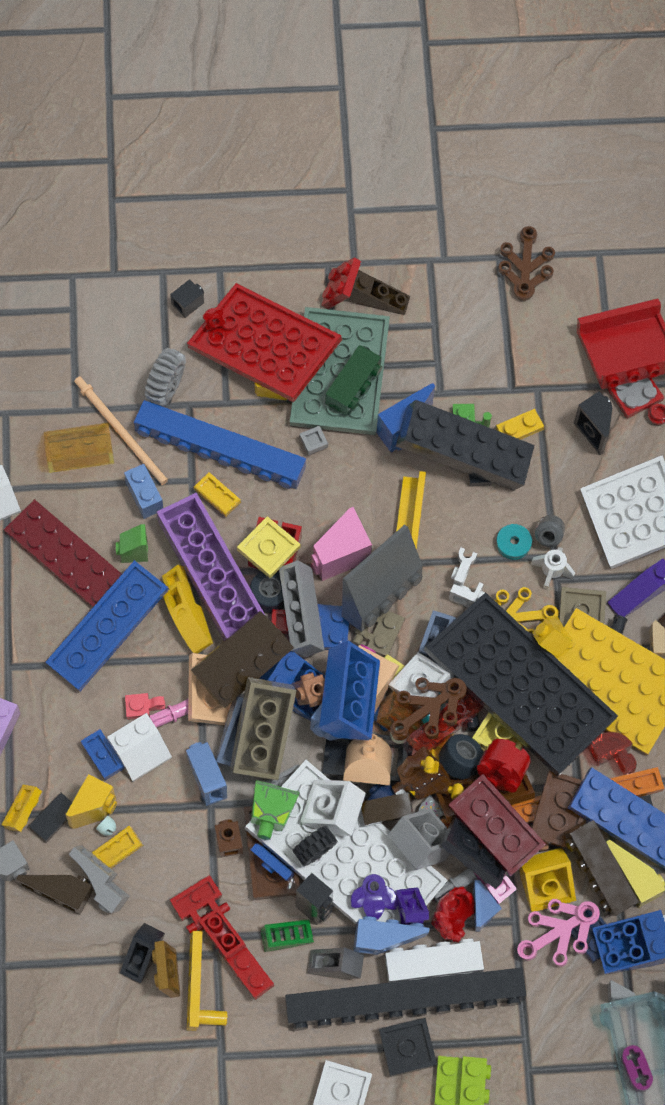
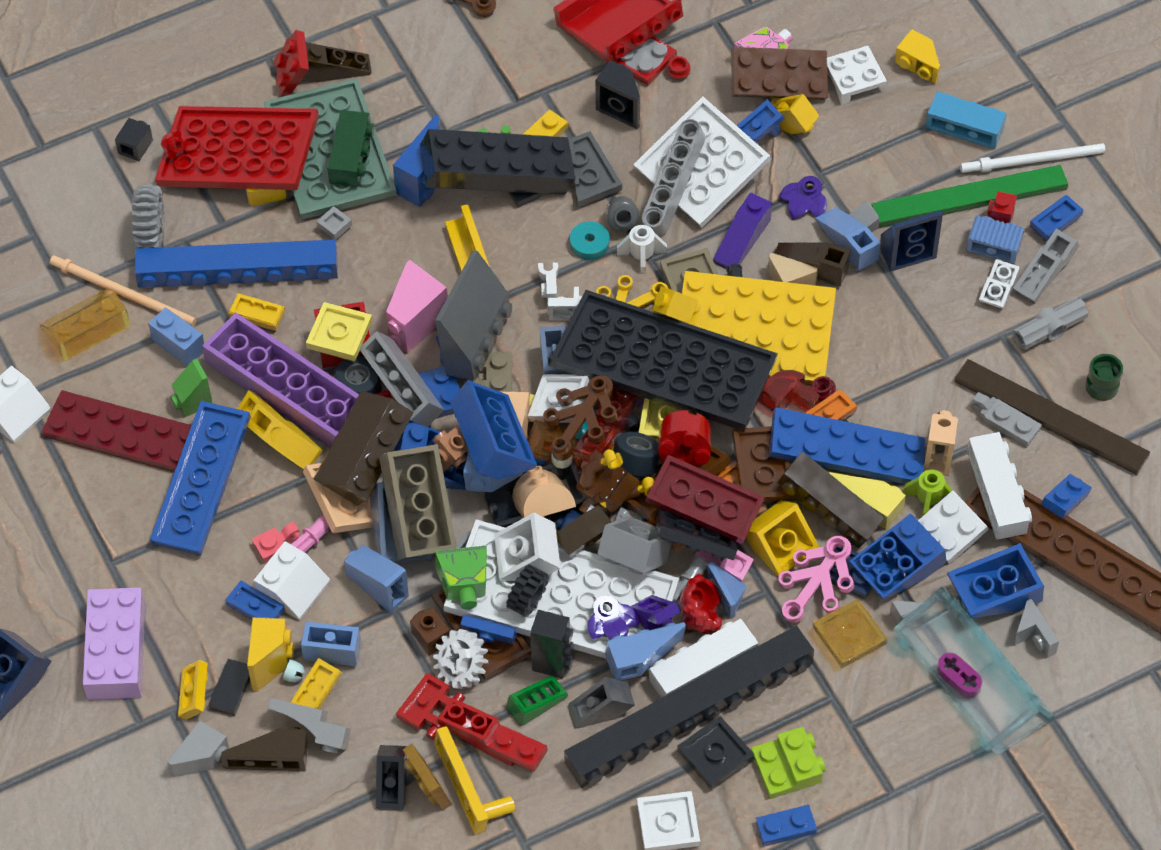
camera: 20 degrees left, 10 degrees down
(144, 817) = (331, 643): none -> medium blue brick
(240, 876) = (460, 658): none -> white gear
(543, 479) = (592, 170): none -> dark grey wing
(564, 990) = (850, 633): none -> clear yellow plate
(602, 529) = (674, 166): none -> light grey beam
(644, 754) = (824, 387): none -> dark red plate

